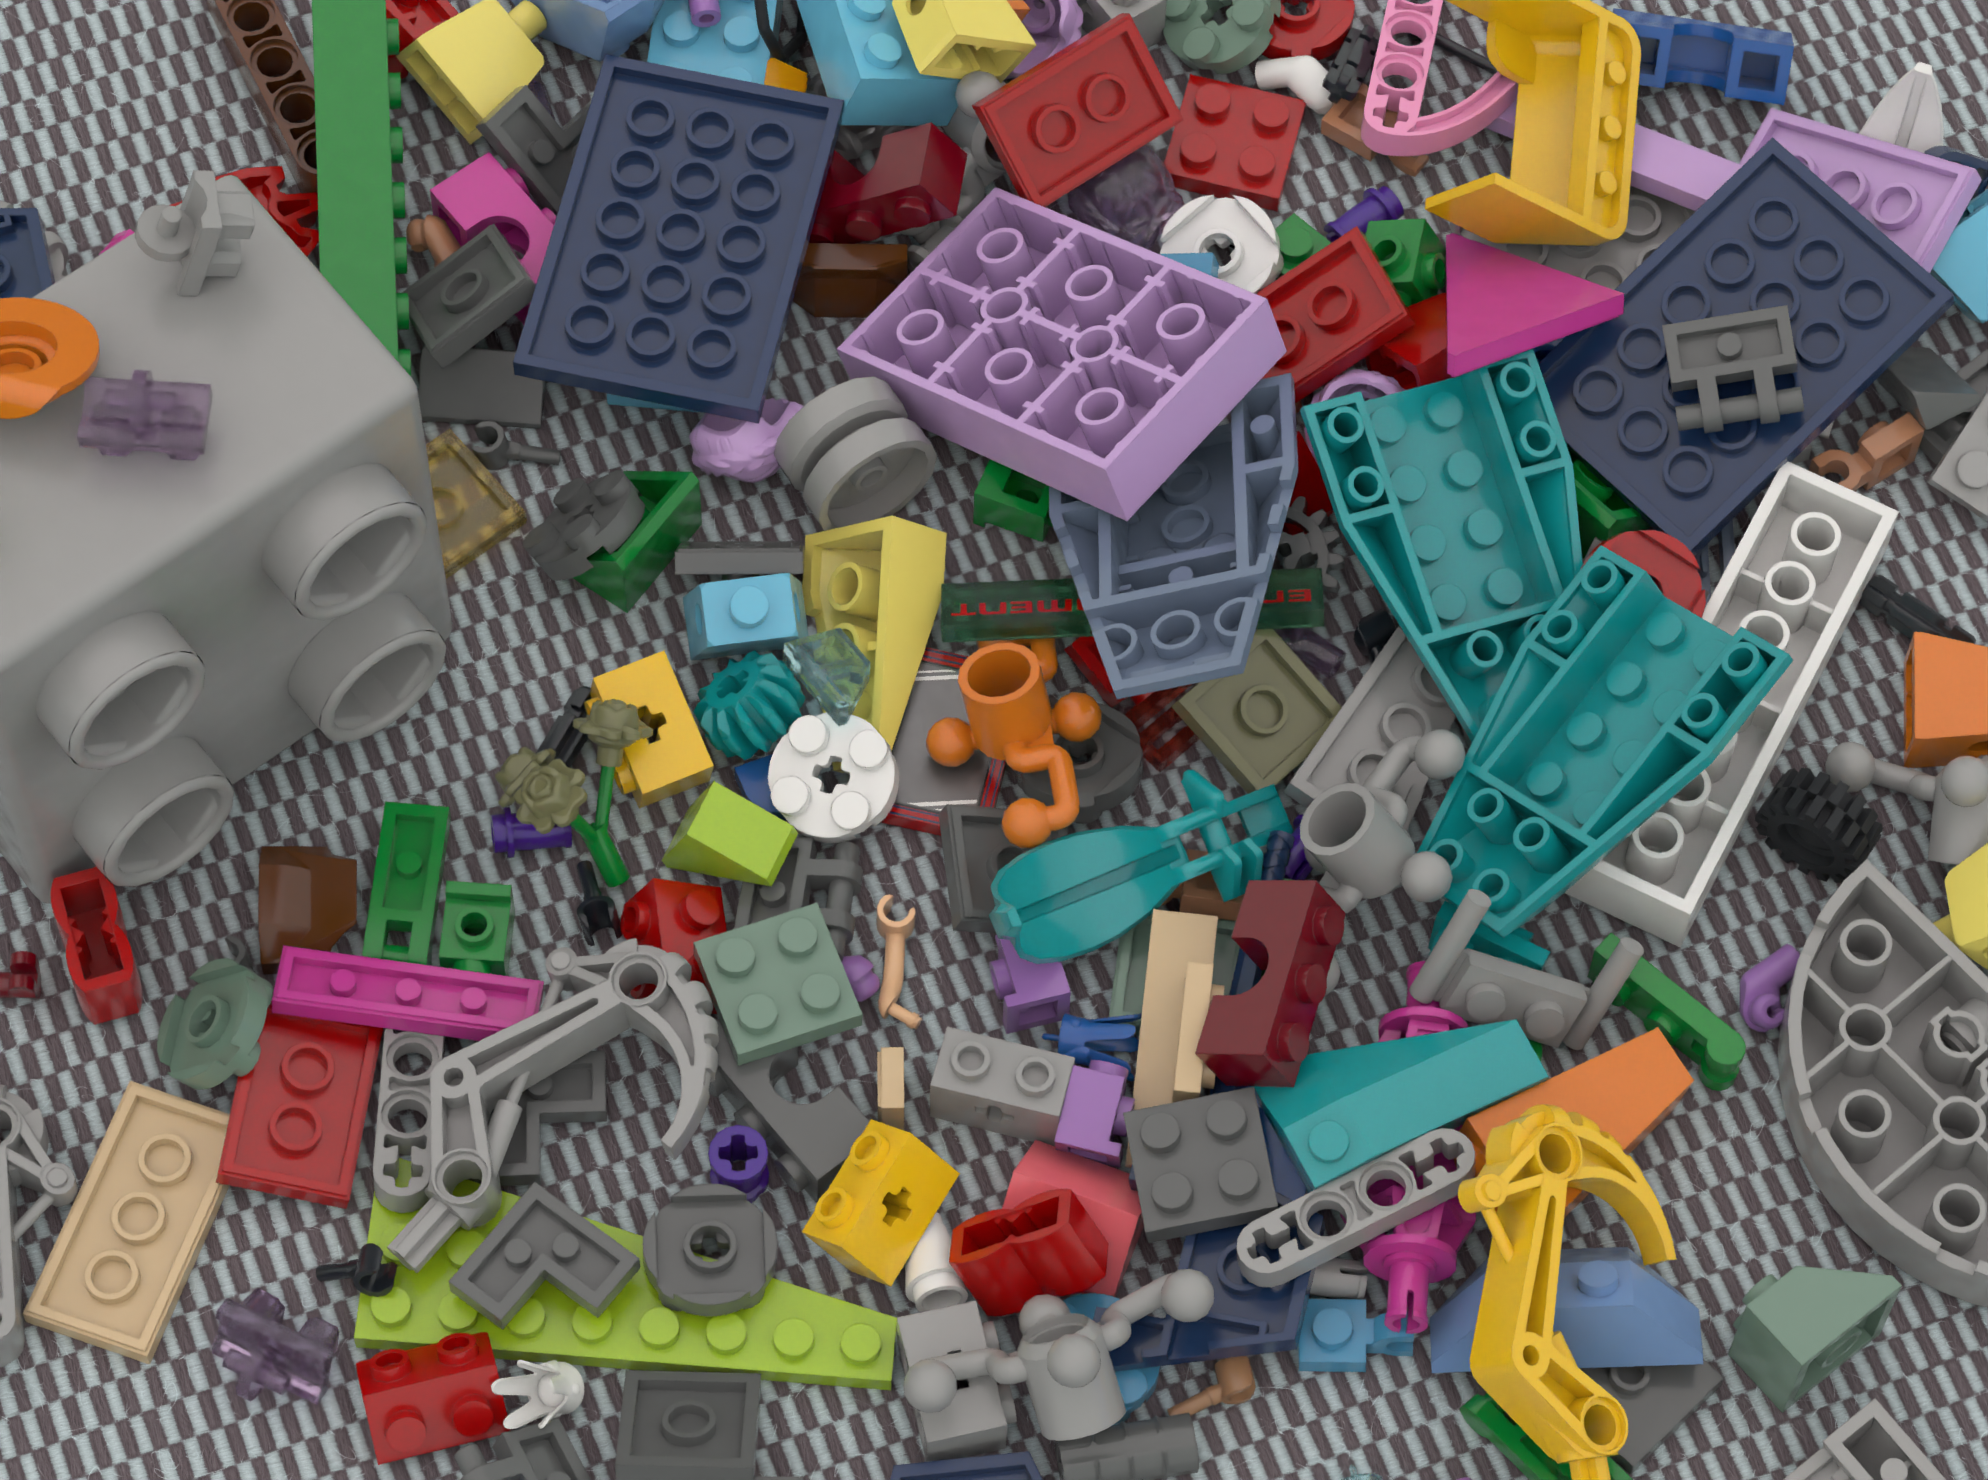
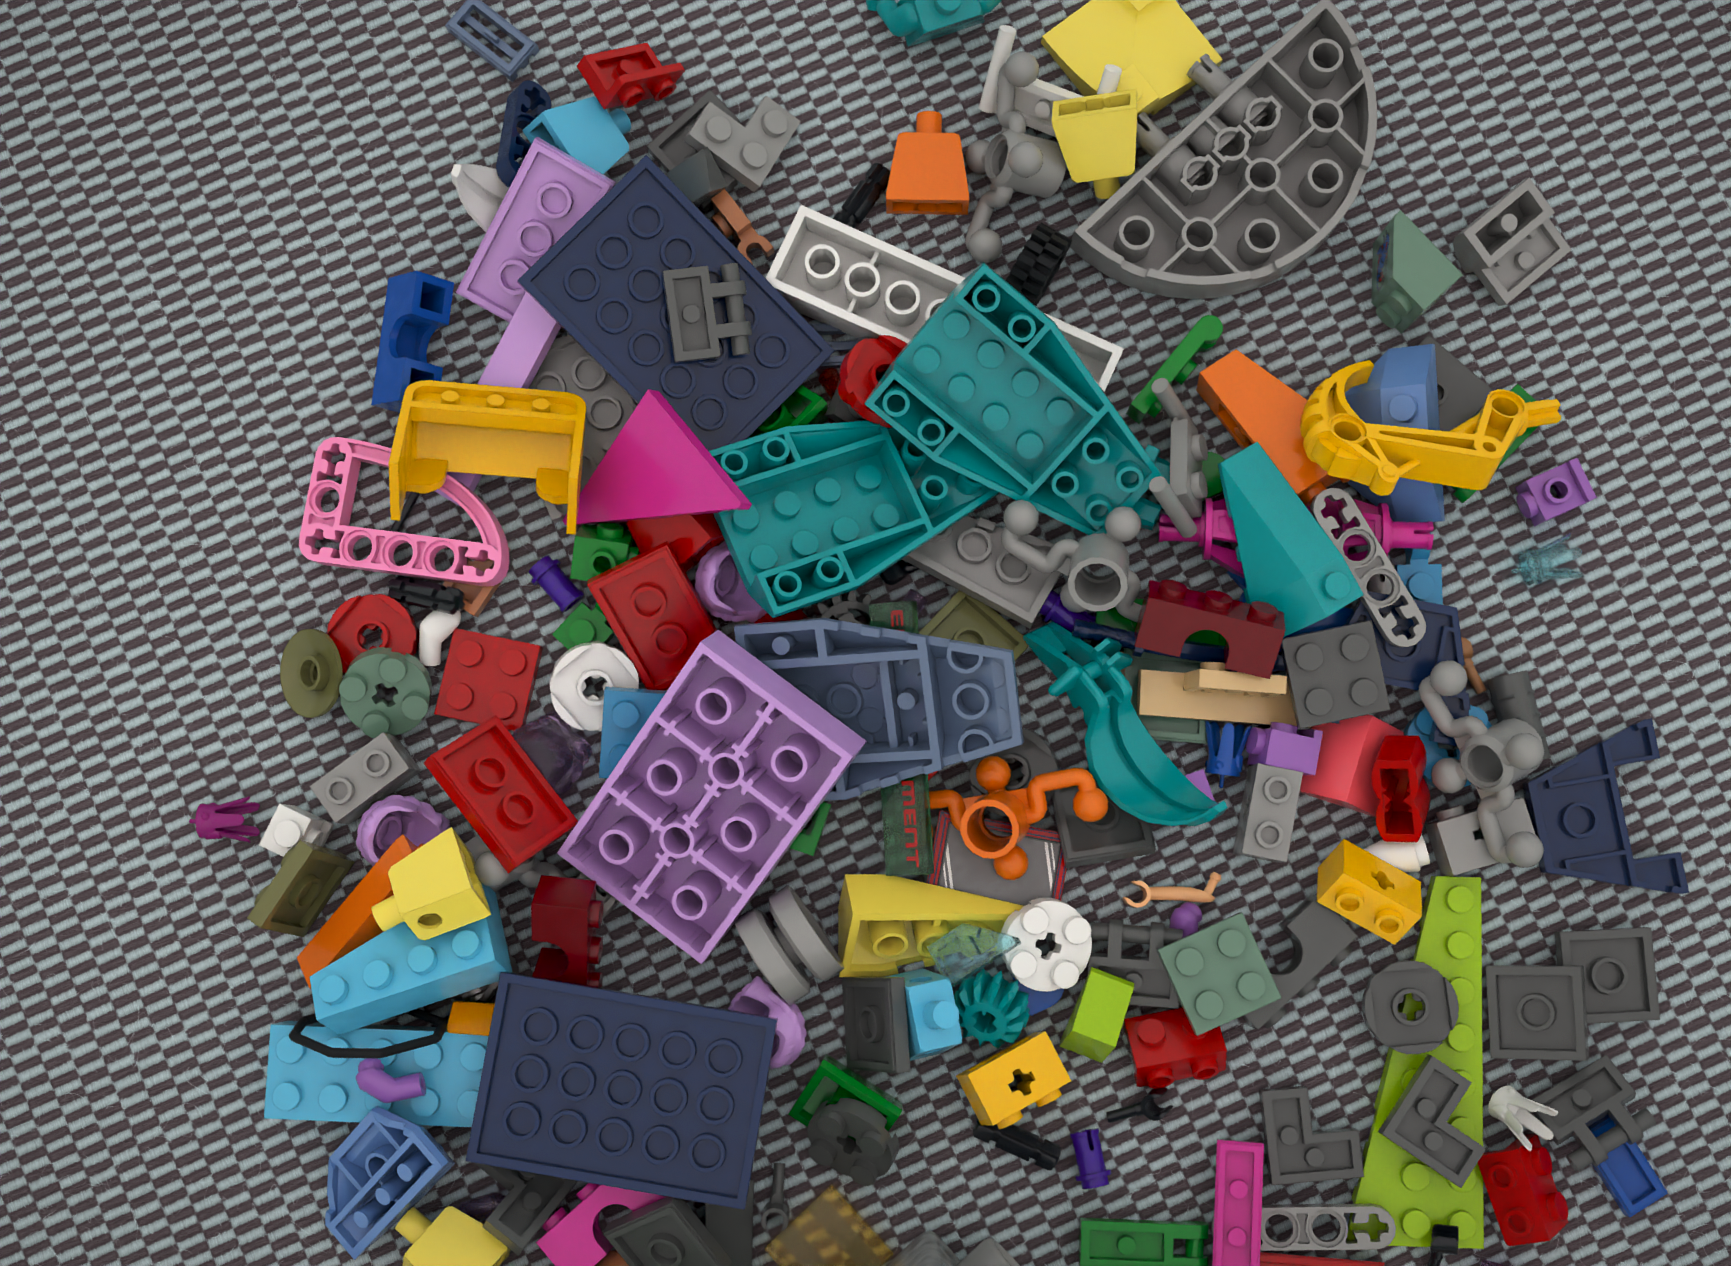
camera: 85 degrees left, 20 degrees up
(479, 910) = (1162, 1182): green brick -> none
(507, 1063) = (1348, 1180): light grey piece -> none
(553, 792) = (1105, 1146): olive plant -> none
(740, 1144) = (1345, 1002): dark purple bush -> none
(849, 278) = (625, 955): reddish brown slope -> none
(891, 1086) = (1273, 889): tan tile -> none
(1761, 989) = (1147, 309): medium lavender arm -> none

